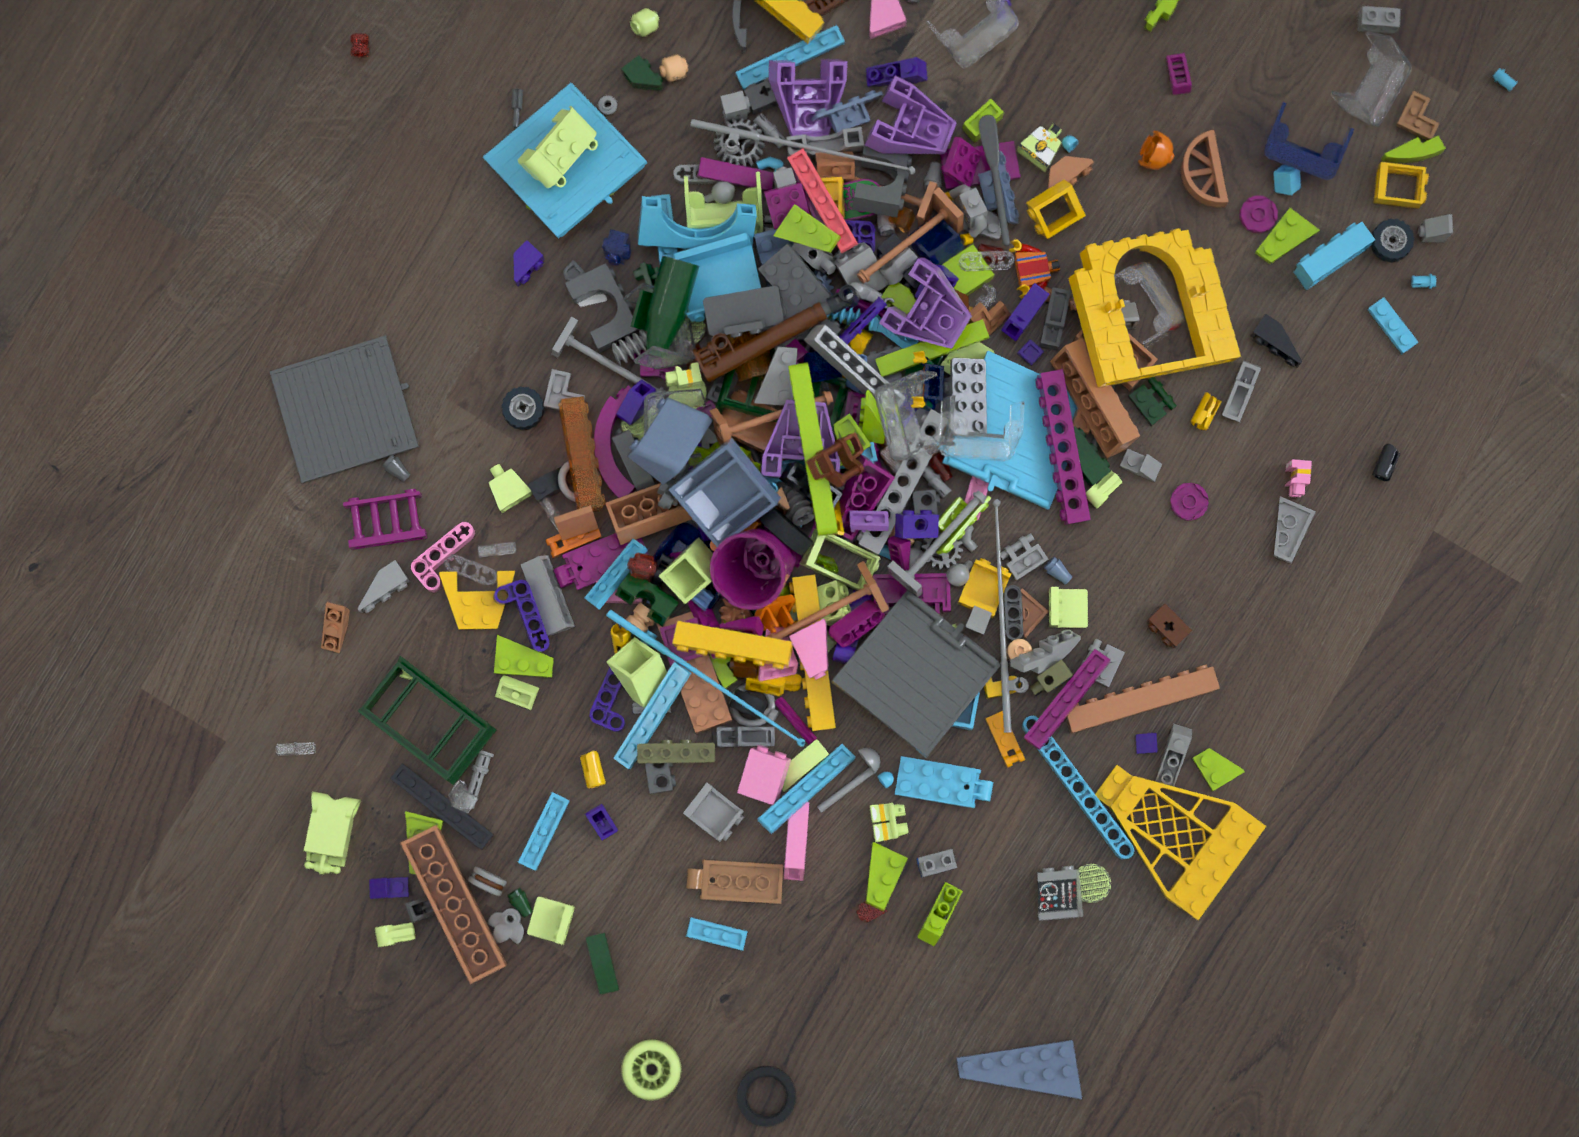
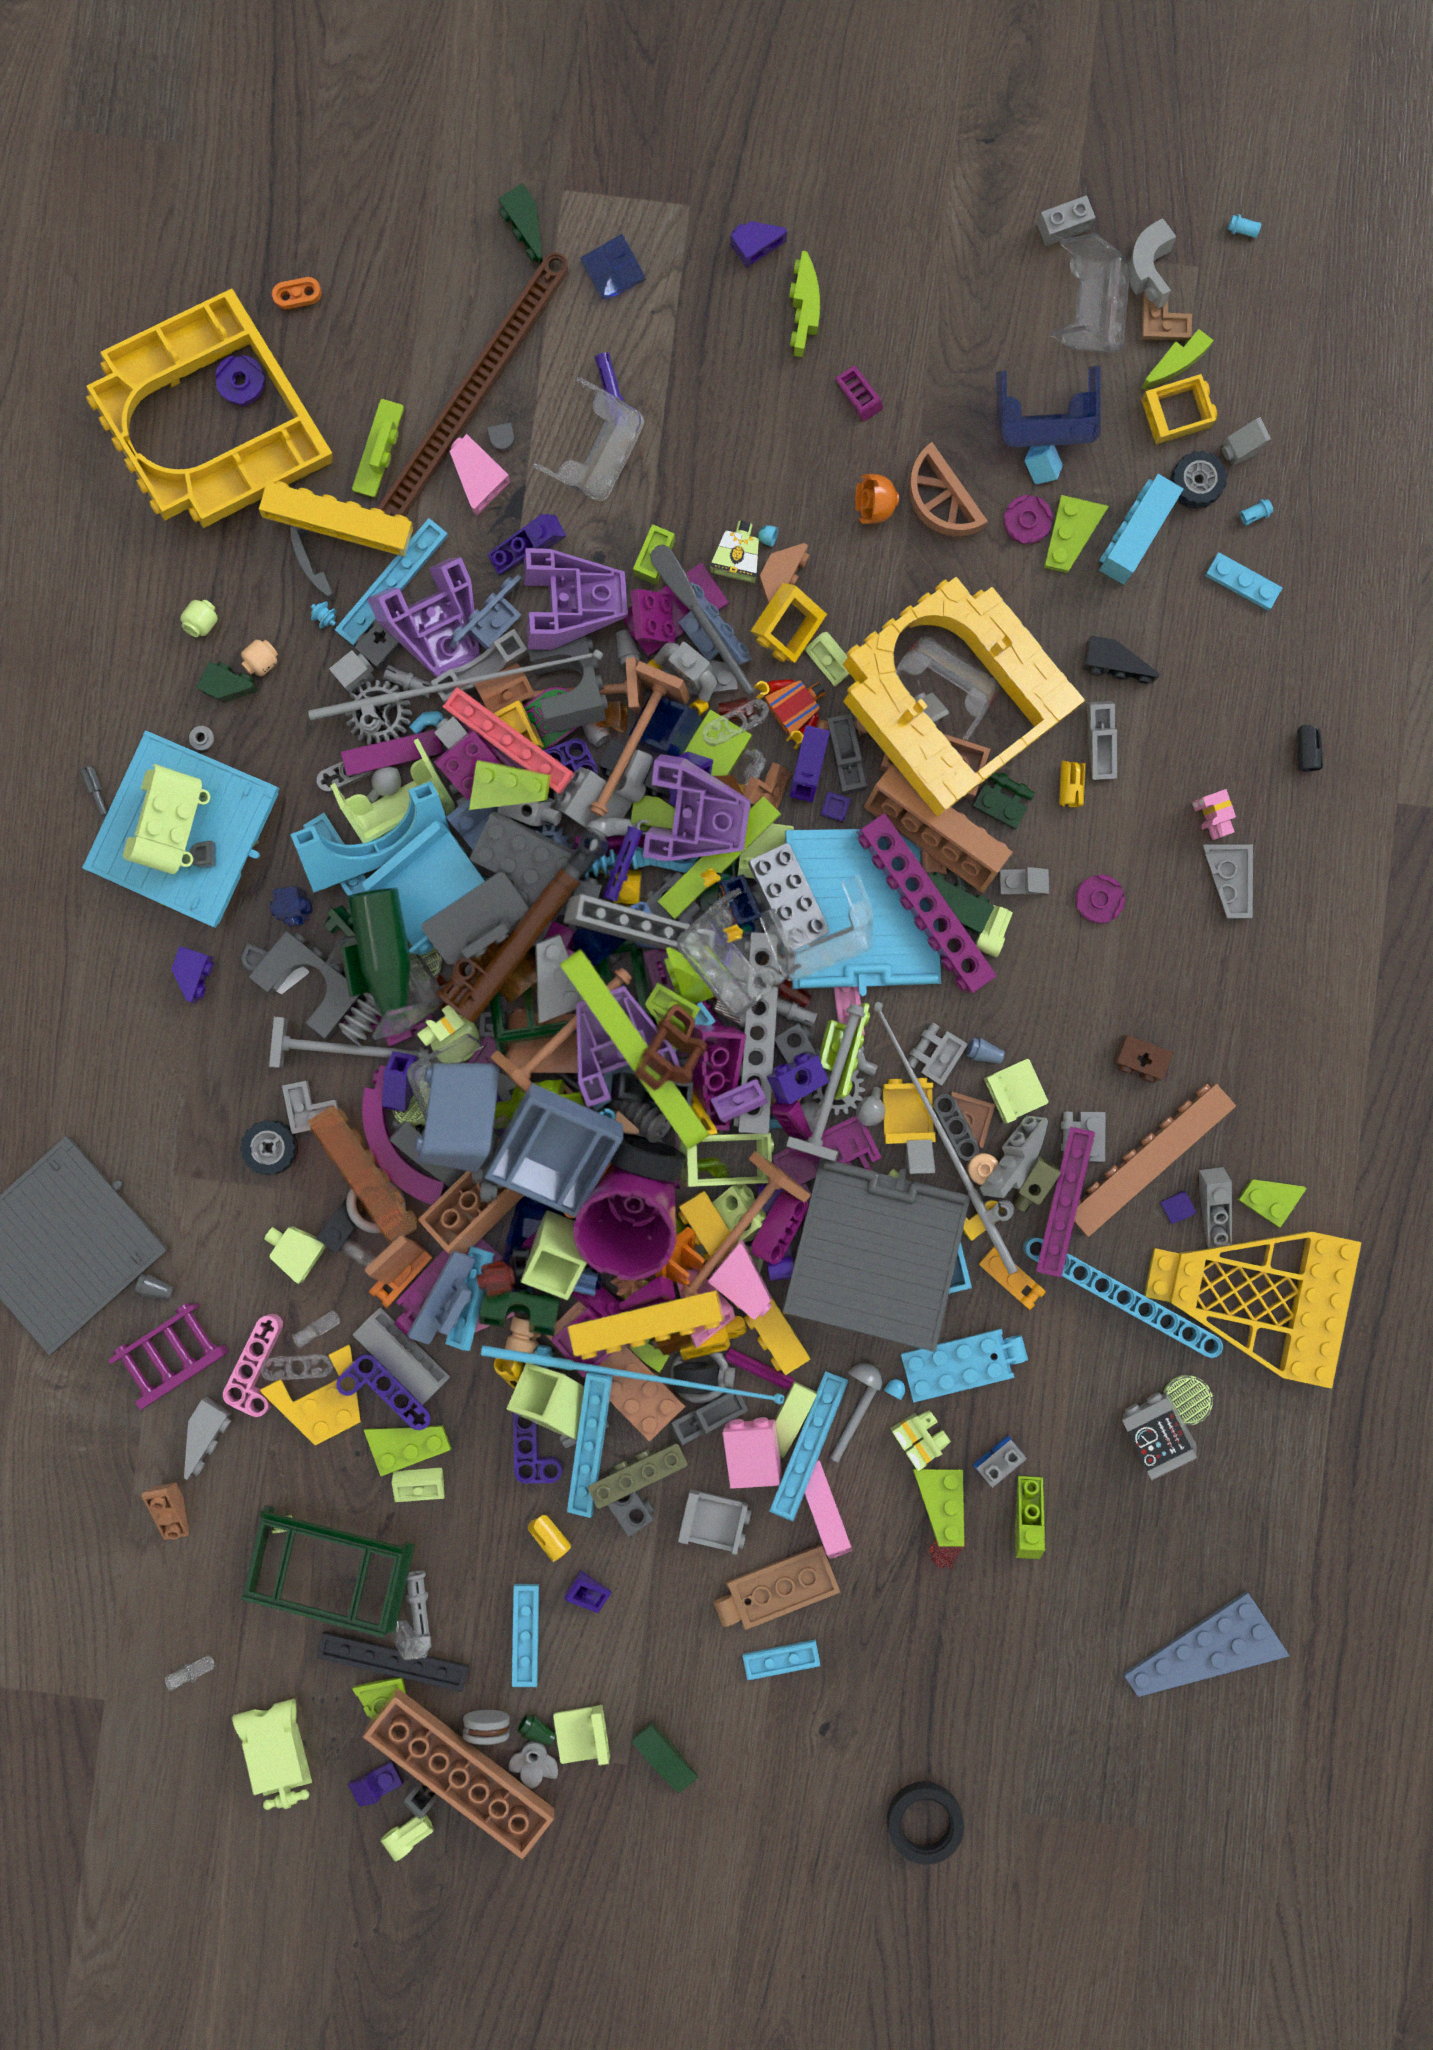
camera: 25 degrees left, 5 degrees up
(574, 184) = (204, 854): none -> dark grey tile
(598, 566) = (445, 1300): none -> sand blue bracket
(636, 1076) = (782, 1876): yellowish green wheel -> none
(732, 58) = (323, 614): none -> medium azure wheel
(1072, 245) = (828, 657): none -> yellowish green slope
(1430, 63) = (1151, 245): none -> light grey arch

